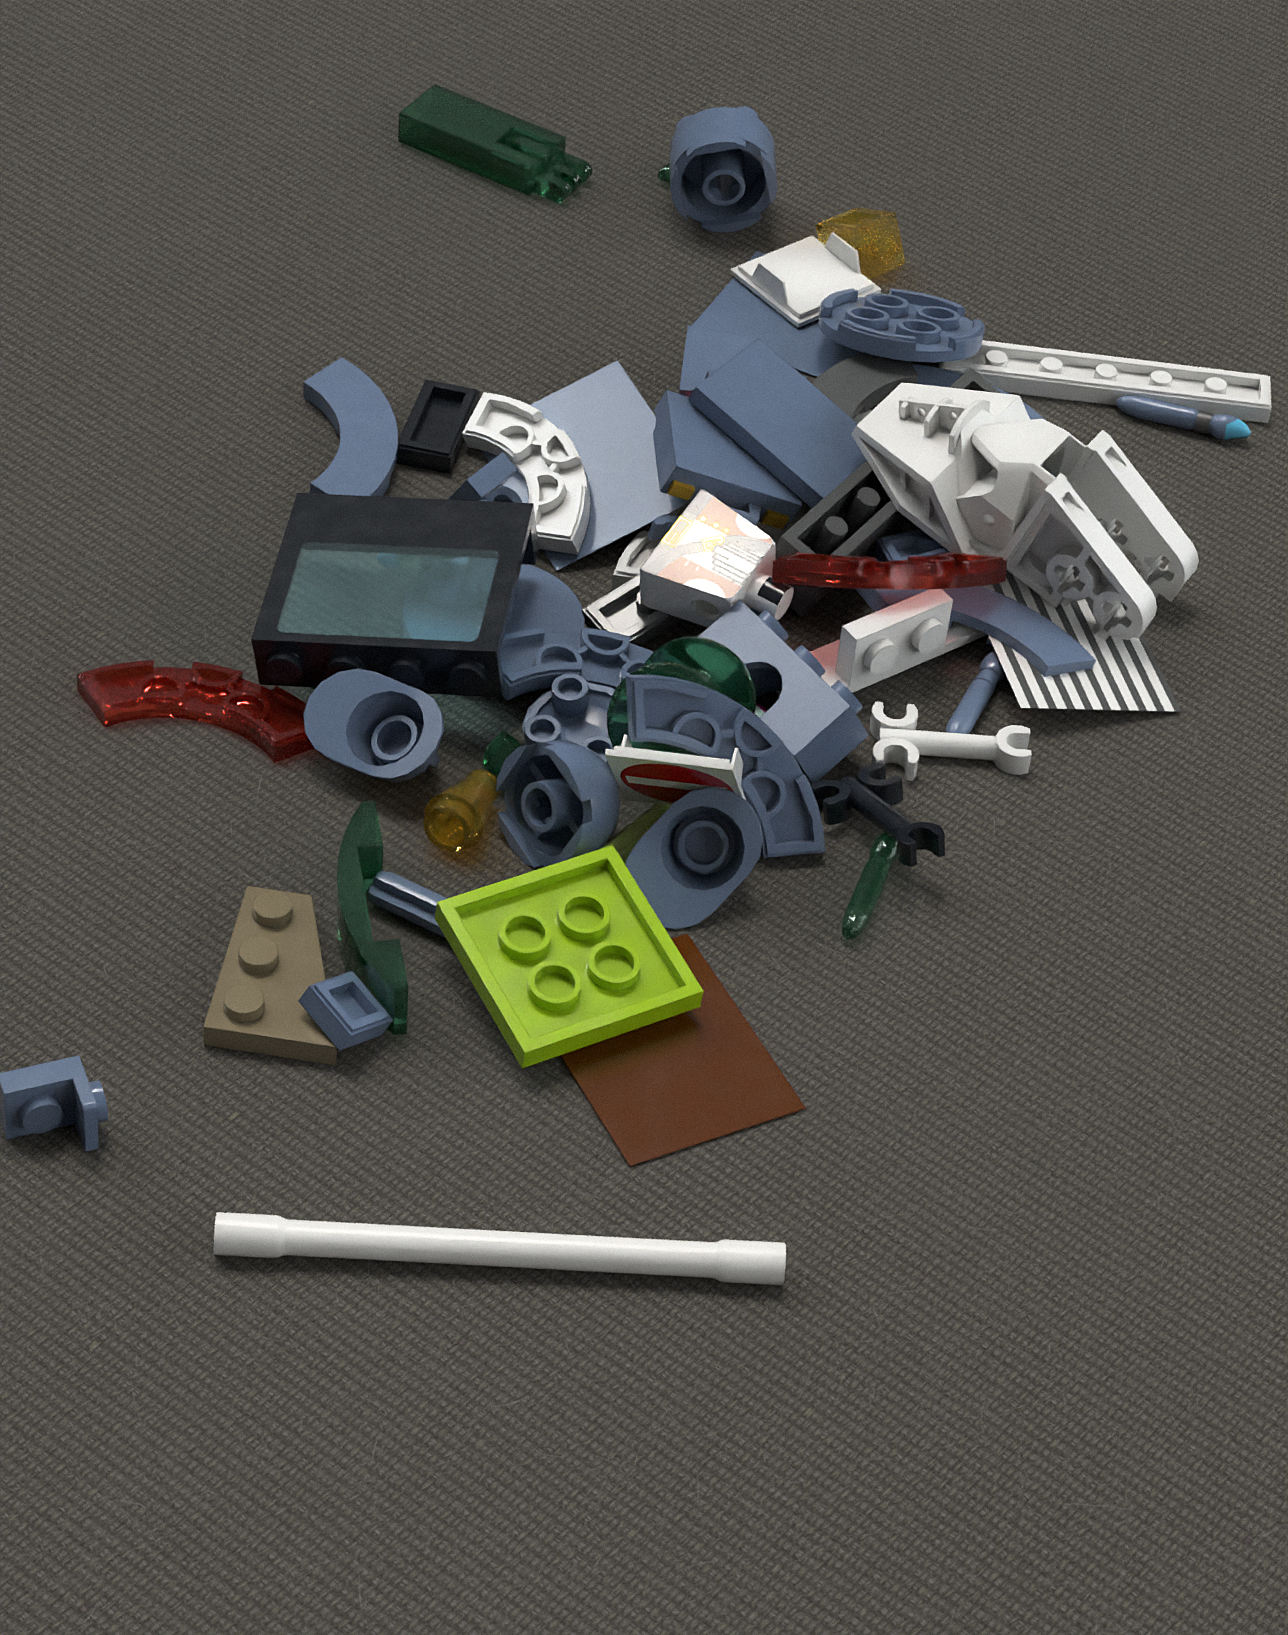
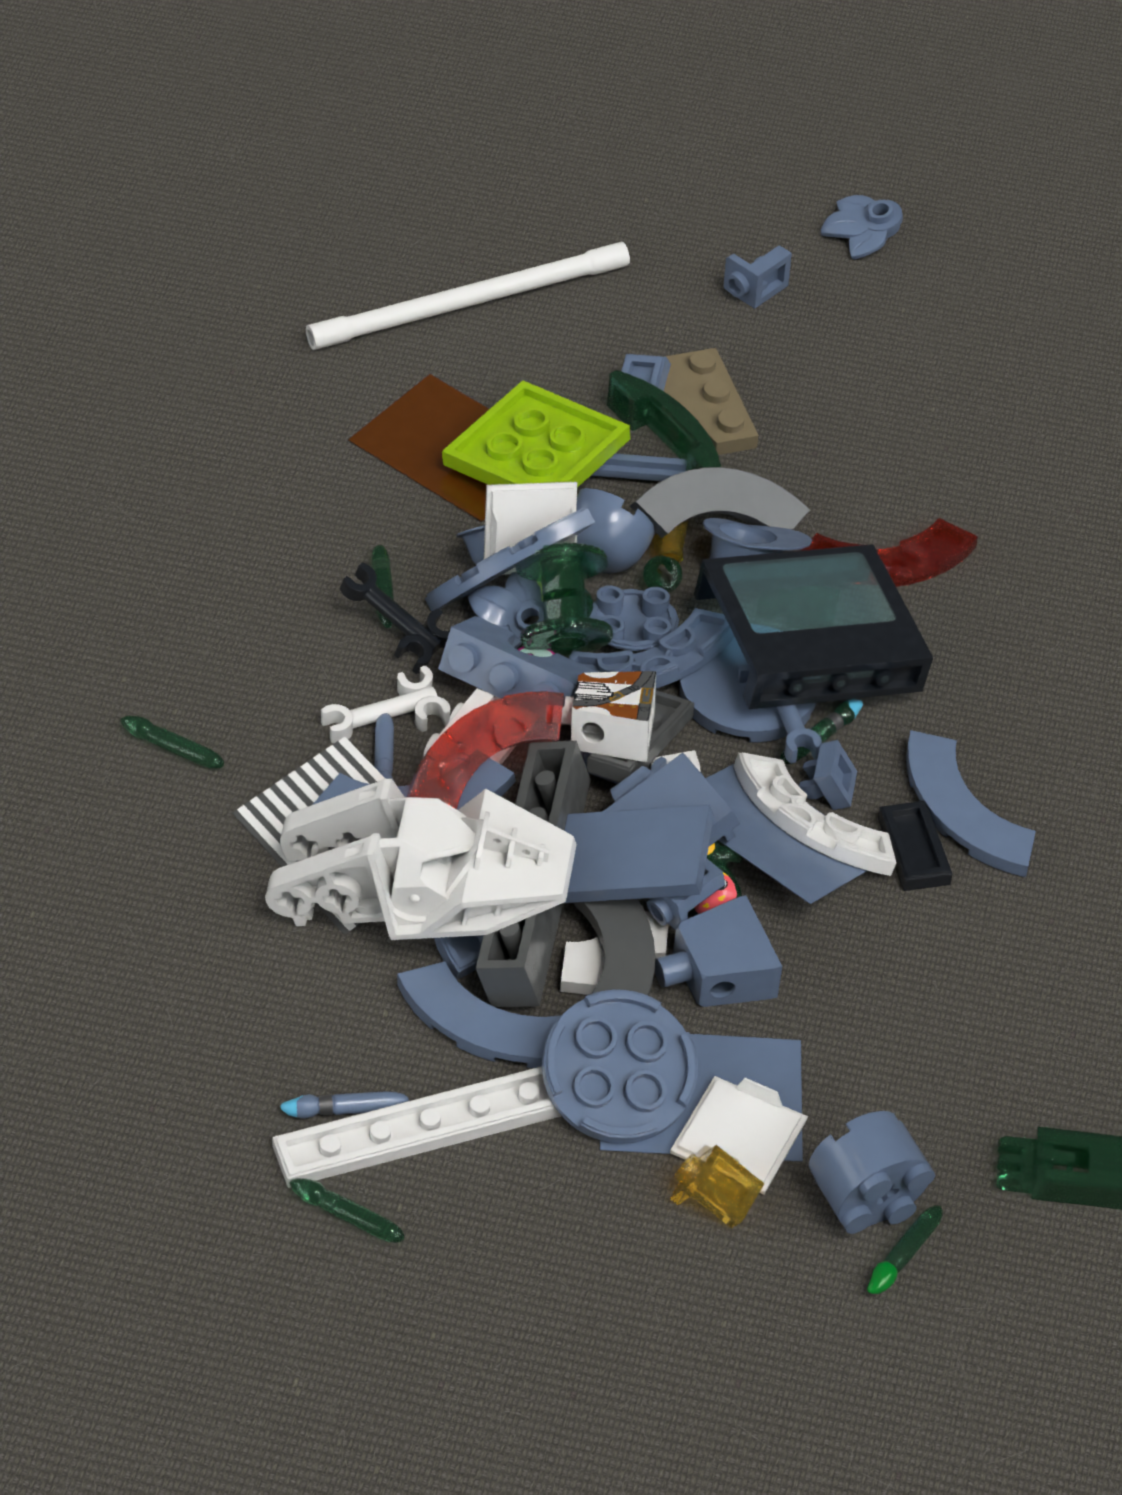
camera: 155 degrees right, 5 degrees up
(392, 780) = (719, 492): none -> tile
(1220, 342) = (347, 1210): none -> clear green piece
(1225, 794) = (170, 741): none -> clear green piece

